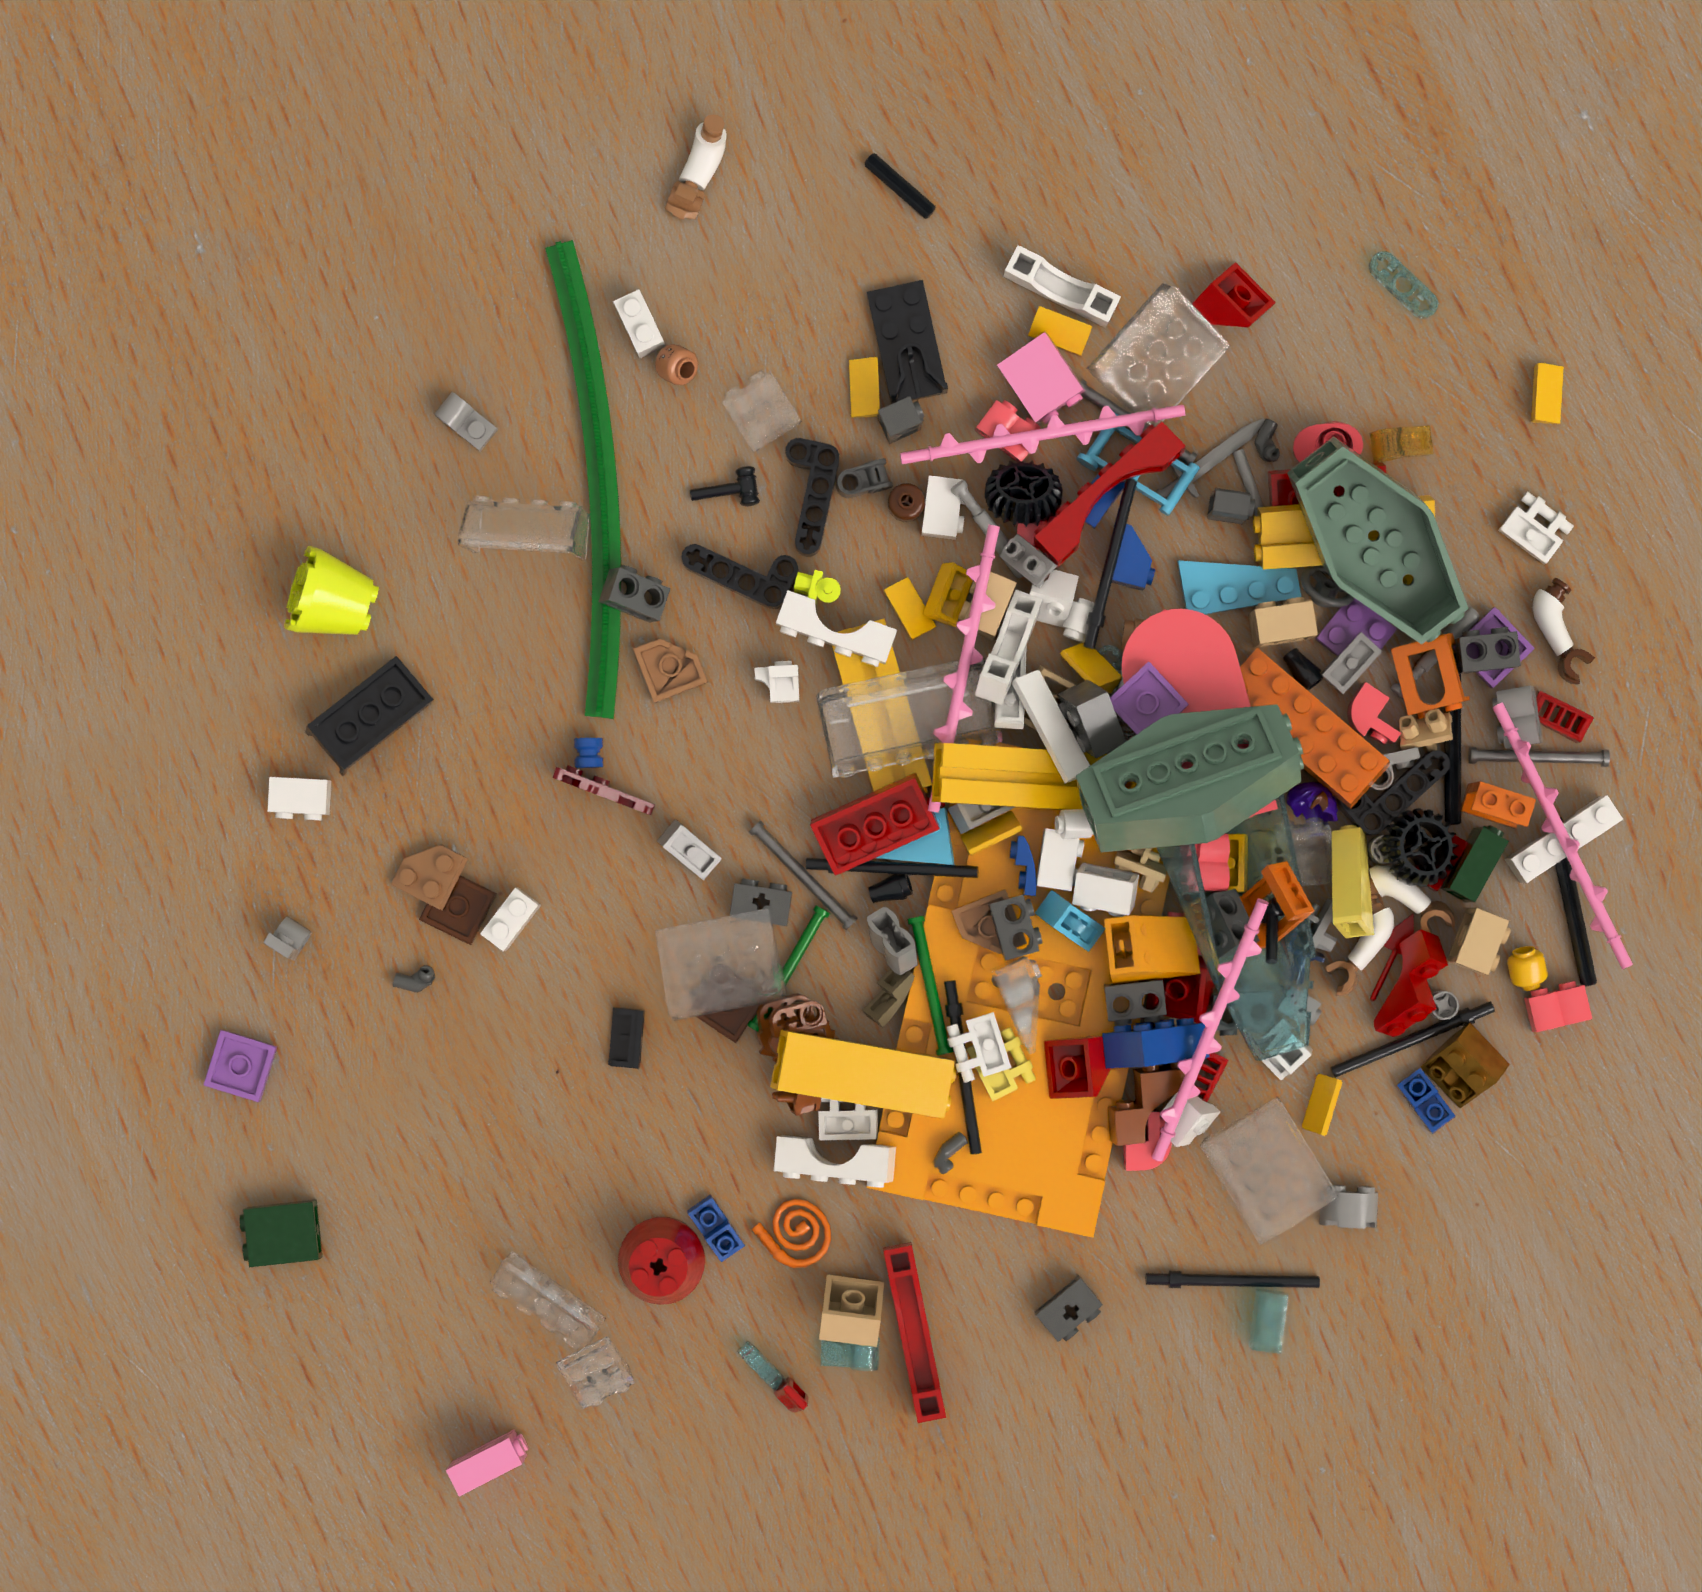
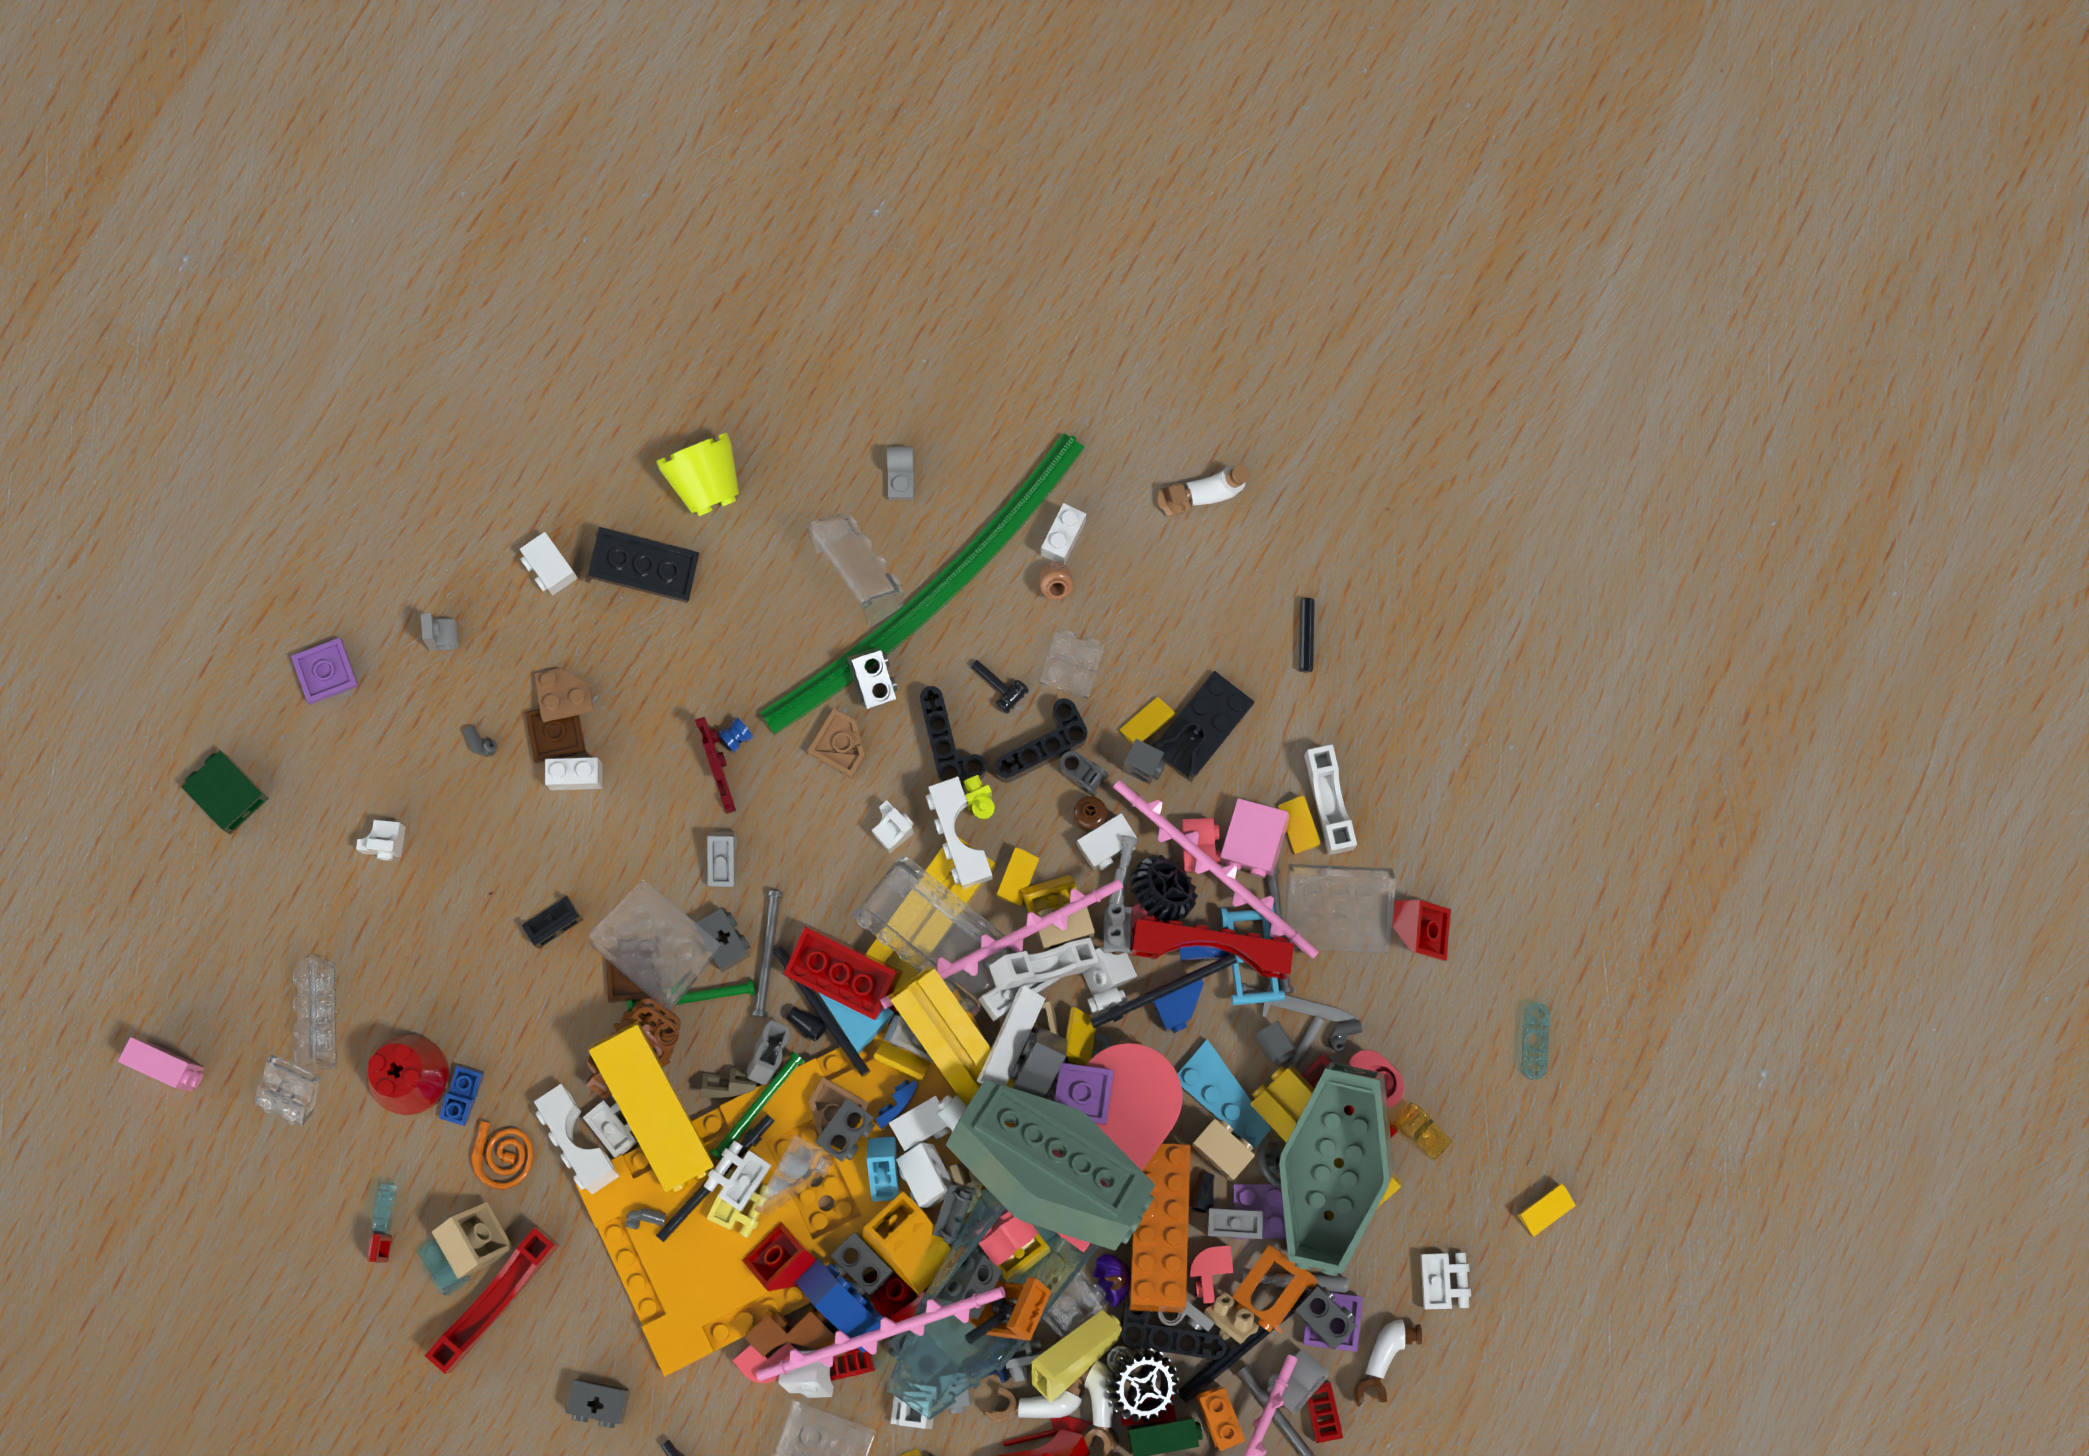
camera: 50 degrees right, 10 degrees down
(438, 1128) = (384, 840): none -> white brick
(1156, 891) = (953, 1213): none -> dark grey hinge

